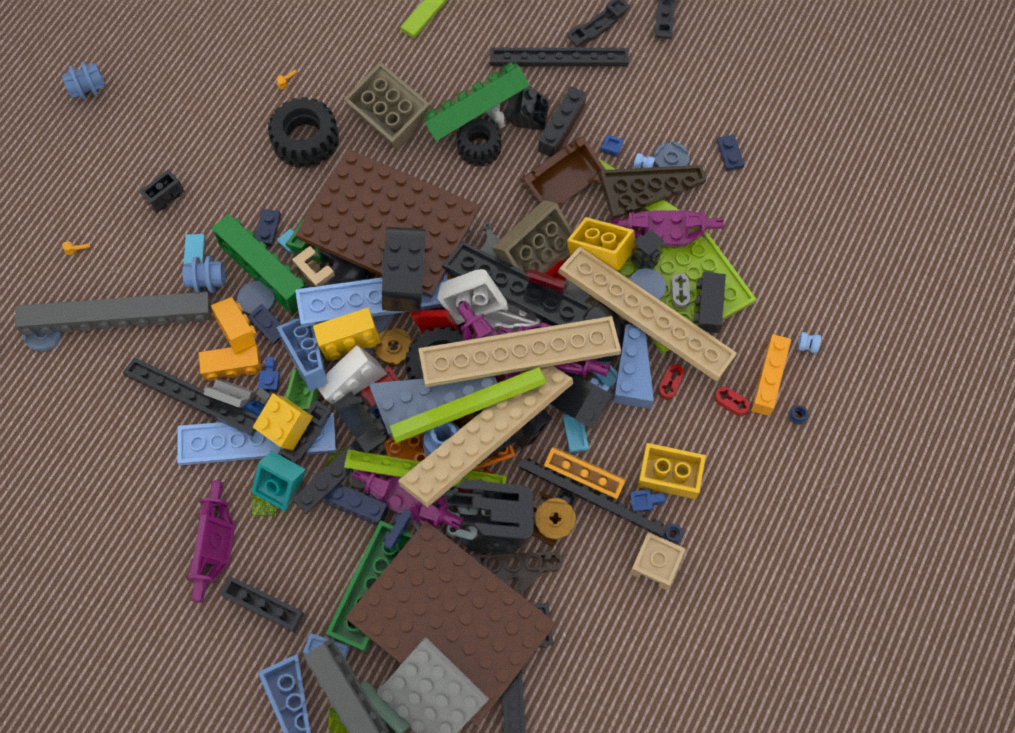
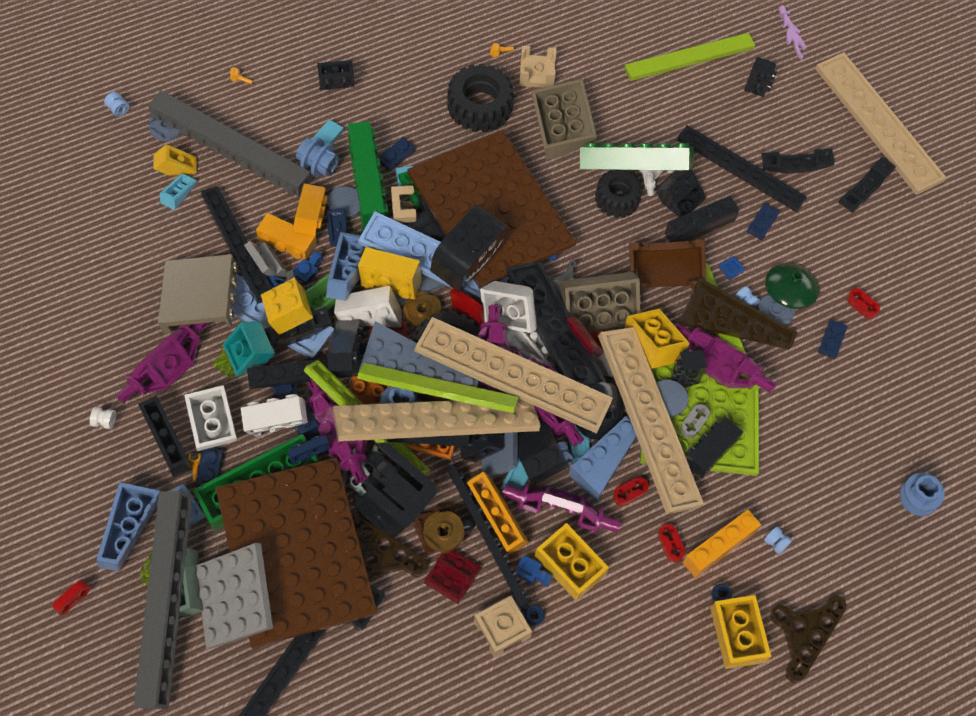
camera: 30 degrees right, 5 degrees down
(77, 361) = (174, 161): none -> yellow slope
(100, 397) = (173, 200): none -> medium azure slope
(193, 461) = (198, 291): none -> dark tan panel
(197, 626) = (103, 418): none -> white wheel
(291, 562) = (210, 418): none -> white brick
(305, 609) = (195, 464): none -> light orange hand
(319, 604) = (209, 466): none -> dark blue plate
(331, 76) = (537, 70): none -> tan panel
(345, 521) = (274, 414): none -> white wedge
(557, 428) = (504, 459): none -> sand blue tile
(586, 549) = (452, 575): none -> dark red slope
(608, 91) = (763, 221): none -> dark blue plate
(622, 427) = (557, 497): none -> magenta plate
(669, 129) = (792, 286): none -> dark green dish
(732, 108) = (863, 303): none -> red beam
(836, 434) = (740, 632): none -> yellow brick
(880, 411) = (802, 641): none -> dark brown beam
(886, 232) = (922, 494): none -> medium blue piece

